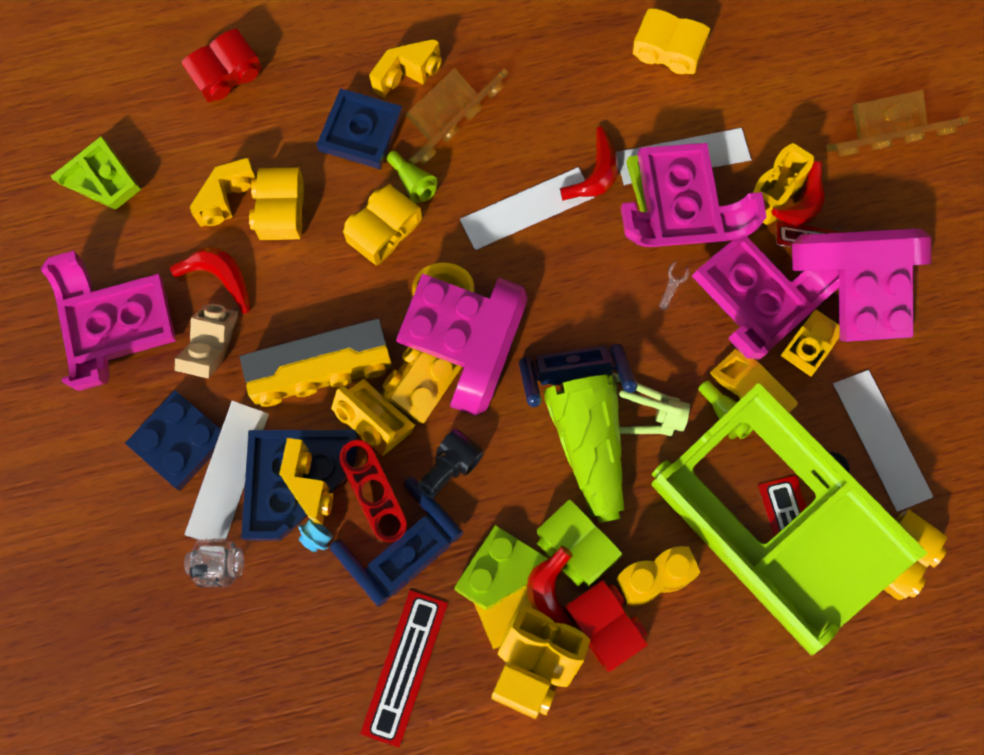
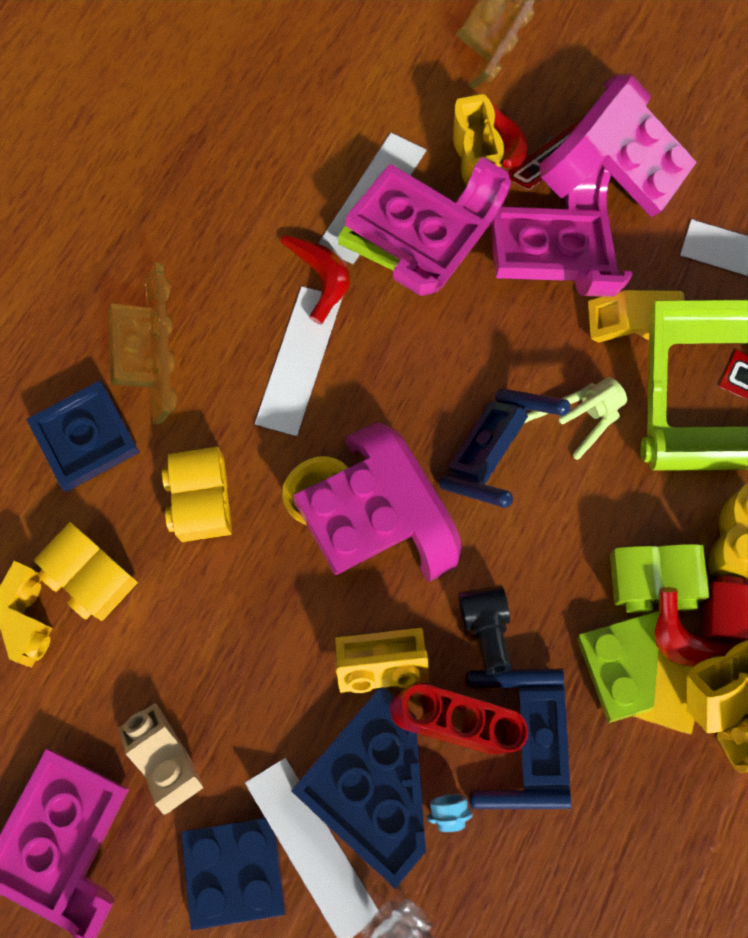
camera: 50 degrees left, 0 degrees up
(222, 266) = (95, 679): red piece -> none
(310, 493) = (415, 783): yellow slope -> none
(316, 363) = (280, 668): piece -> none
(404, 669) = (644, 834): sticker -> none
(413, 60) = (63, 335): yellow slope -> none
(417, 182) = (186, 429): lime cone -> none
(419, 383) = (383, 592): yellow bracket -> none
(591, 440) = (562, 476): lime cone -> none
(671, 41) = (263, 115): yellow brick -> none
(672, 285) = (483, 298): clear hand -> none
(721, 405) = (631, 353): lime cone -> none
(812, 343) = (637, 239): yellow slope -> none

